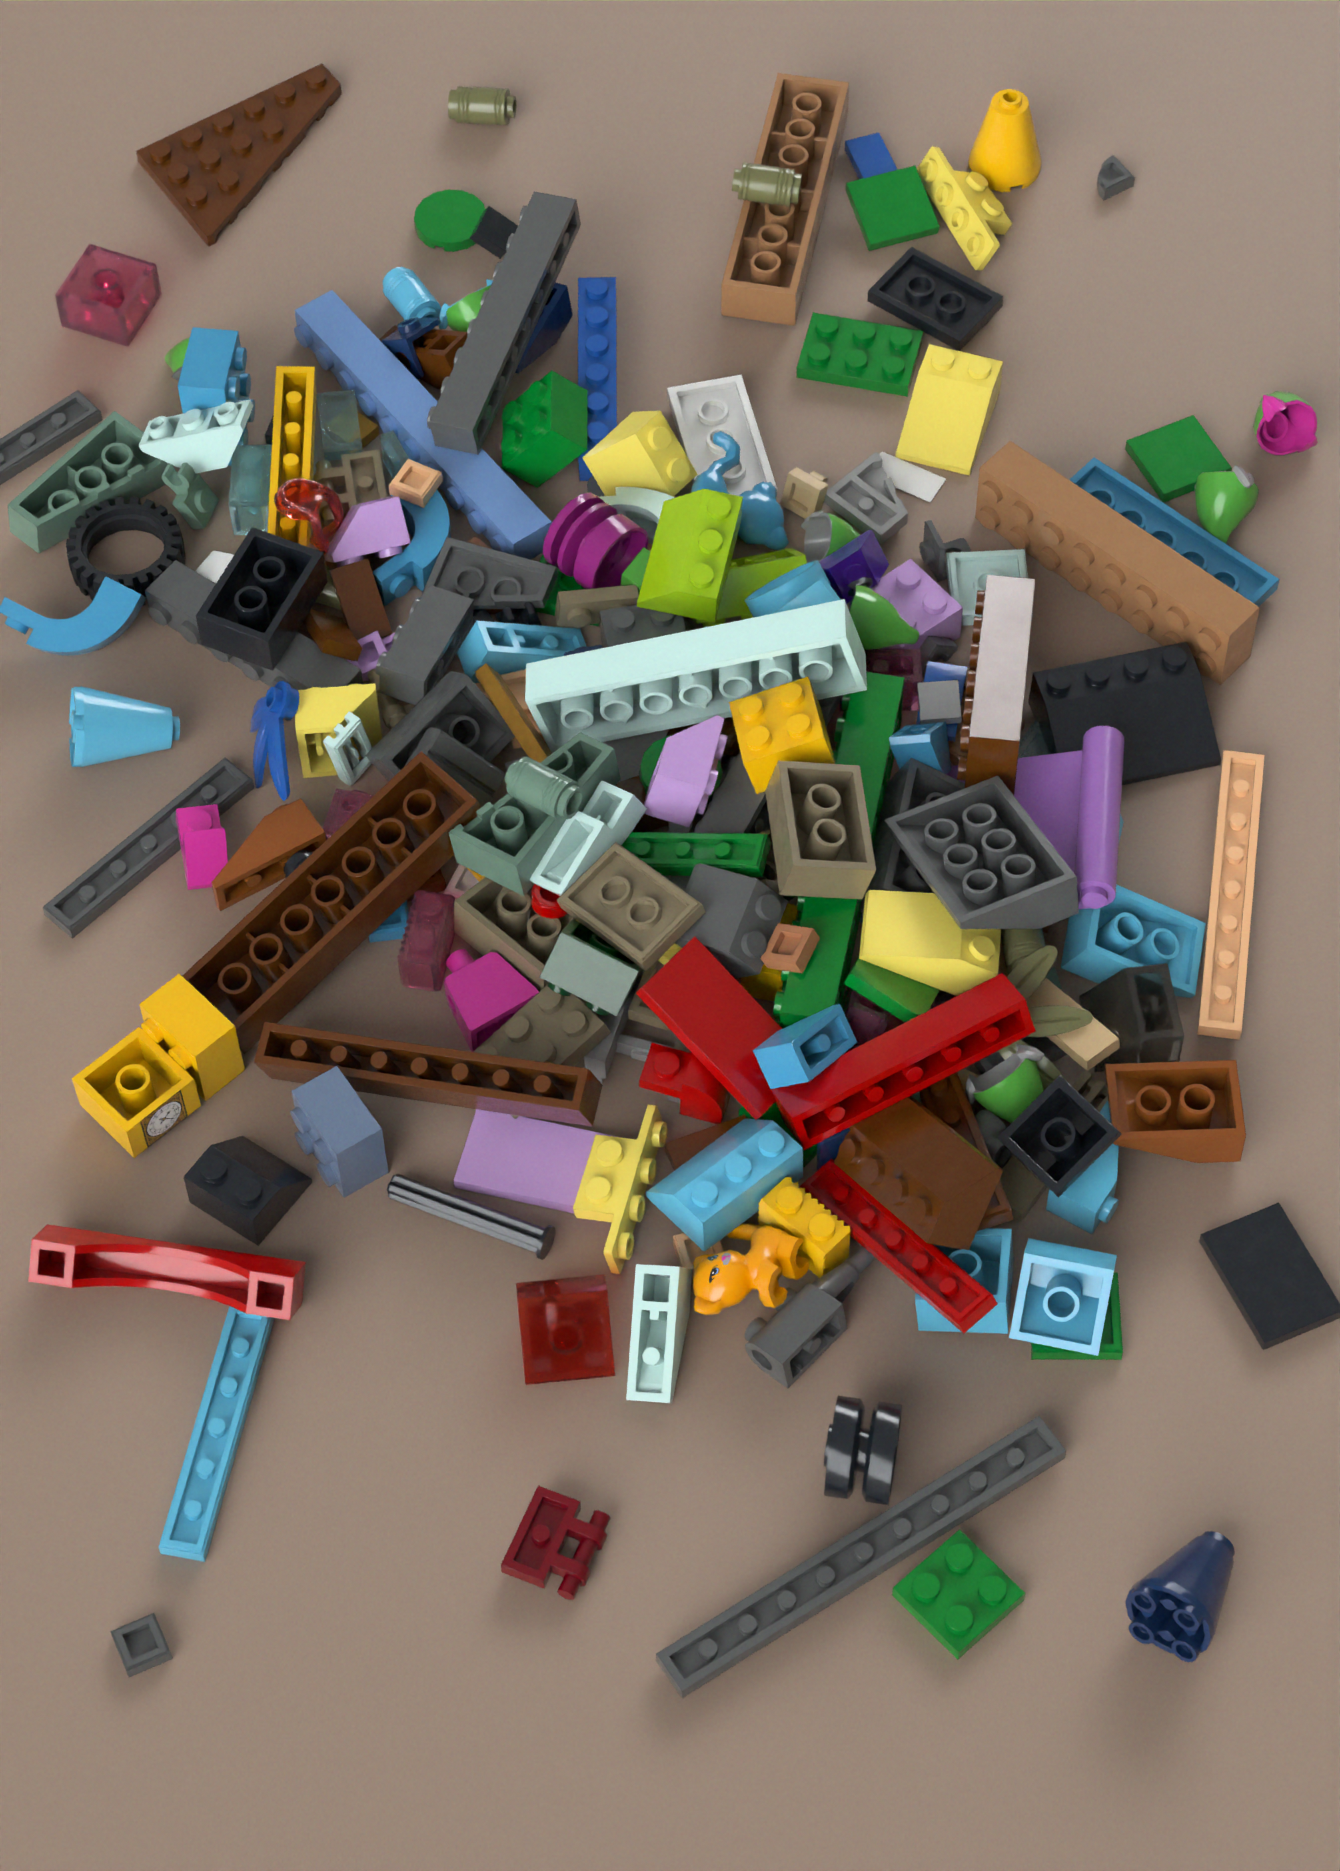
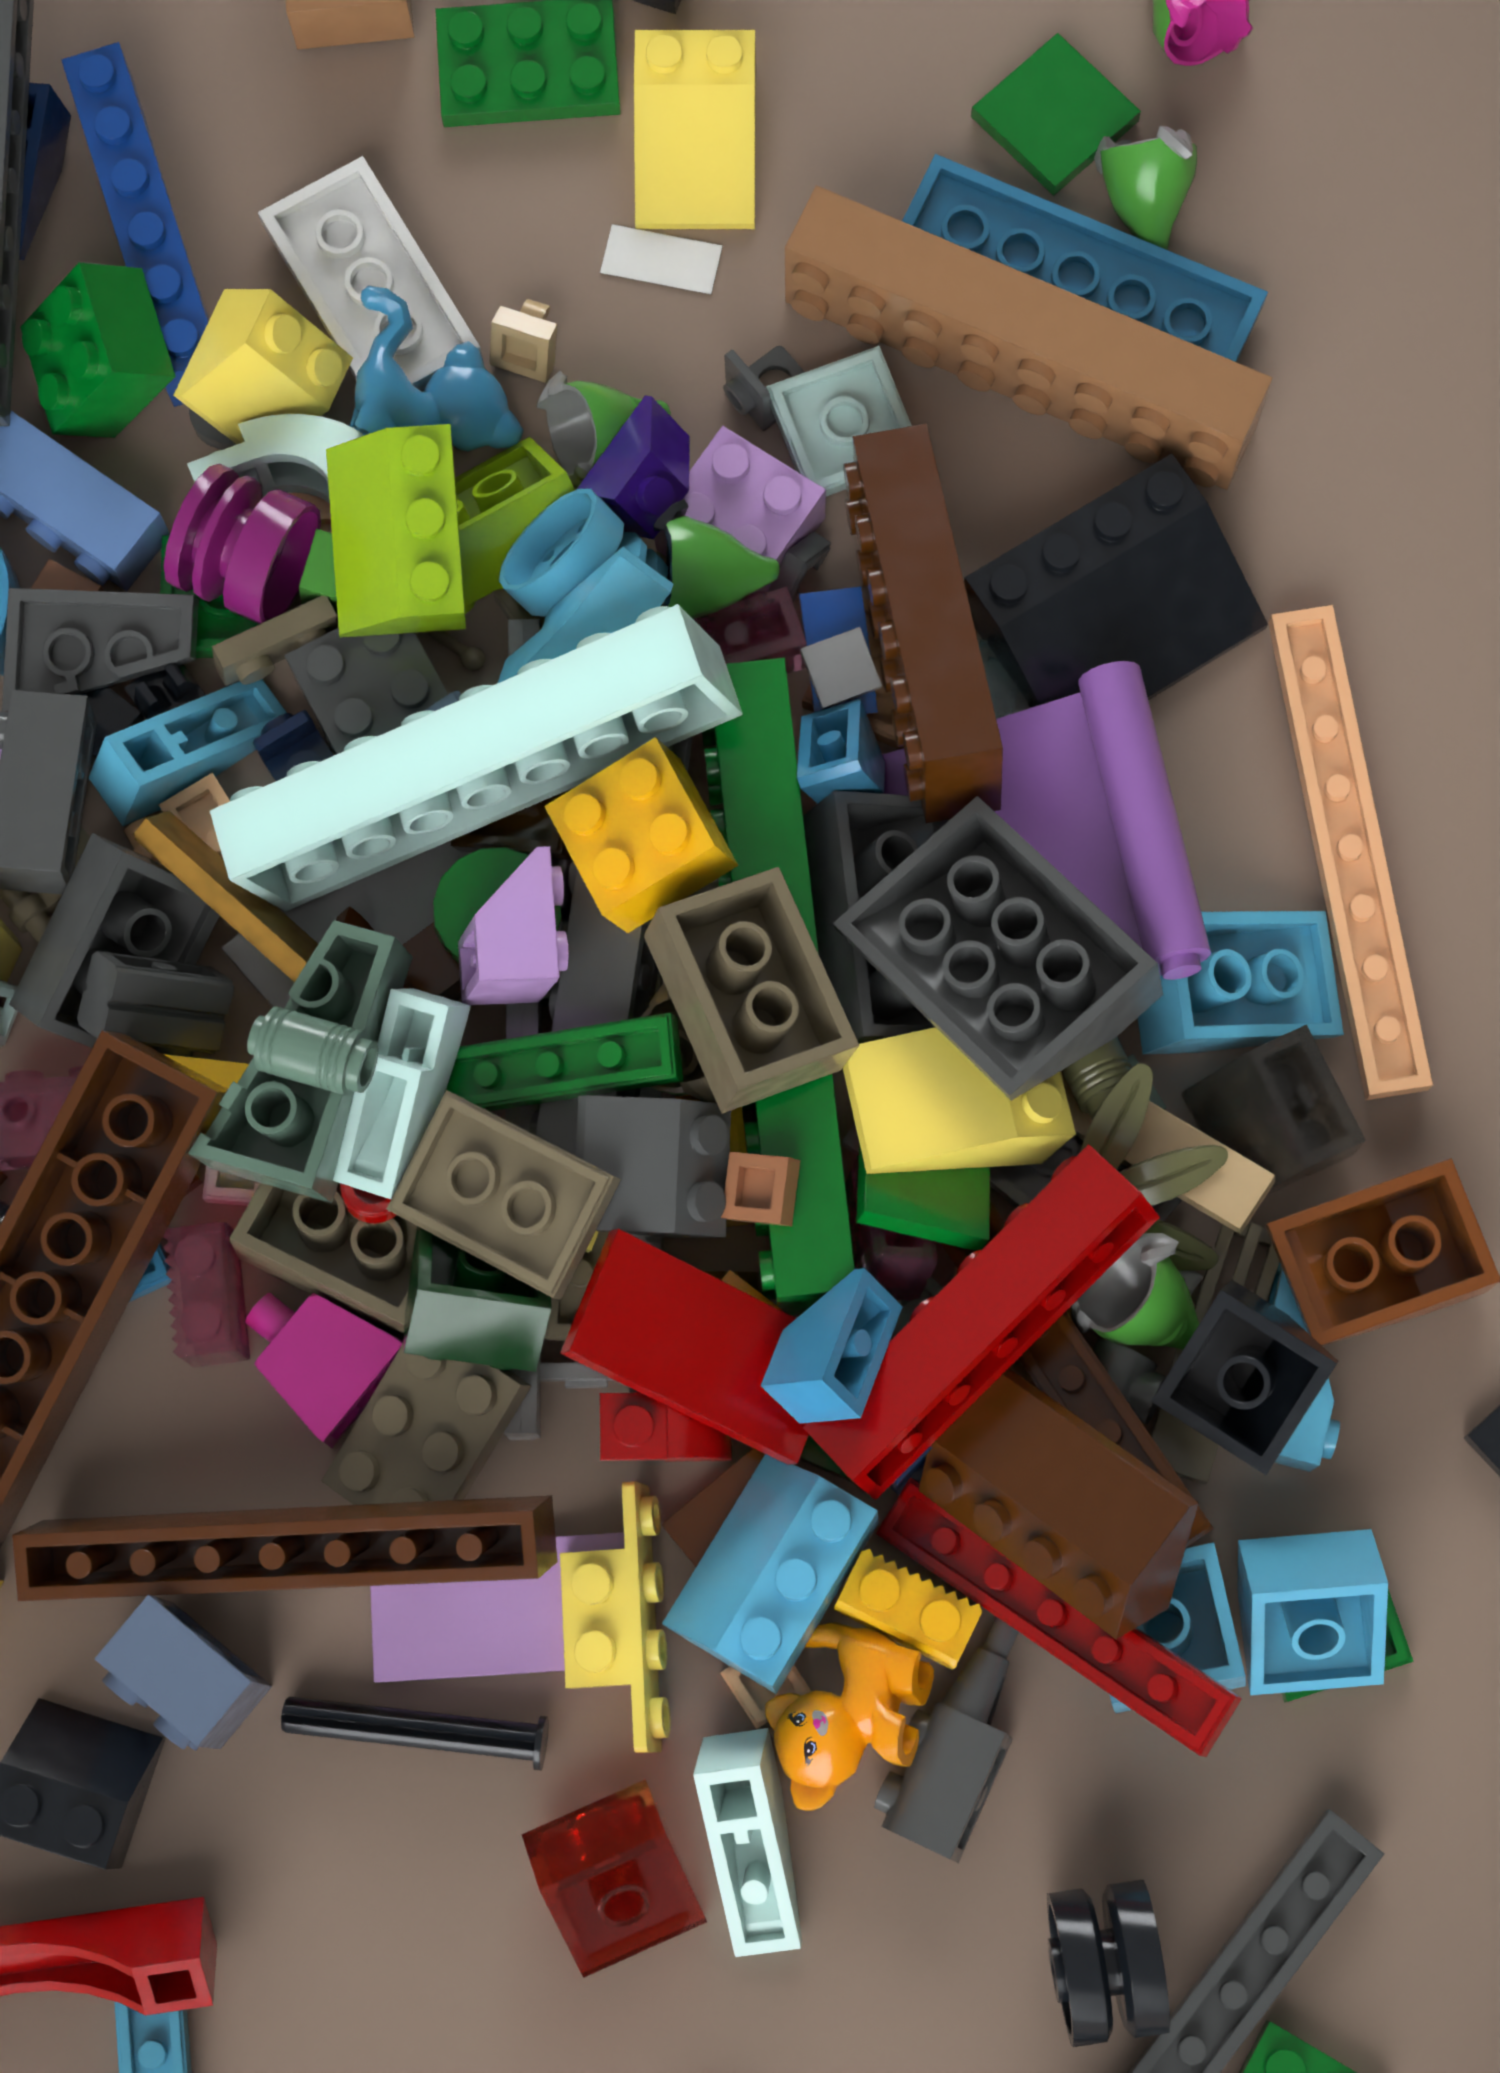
camera: 15 degrees left, 20 degrees up
(869, 500) = (622, 324): light grey wing -> none

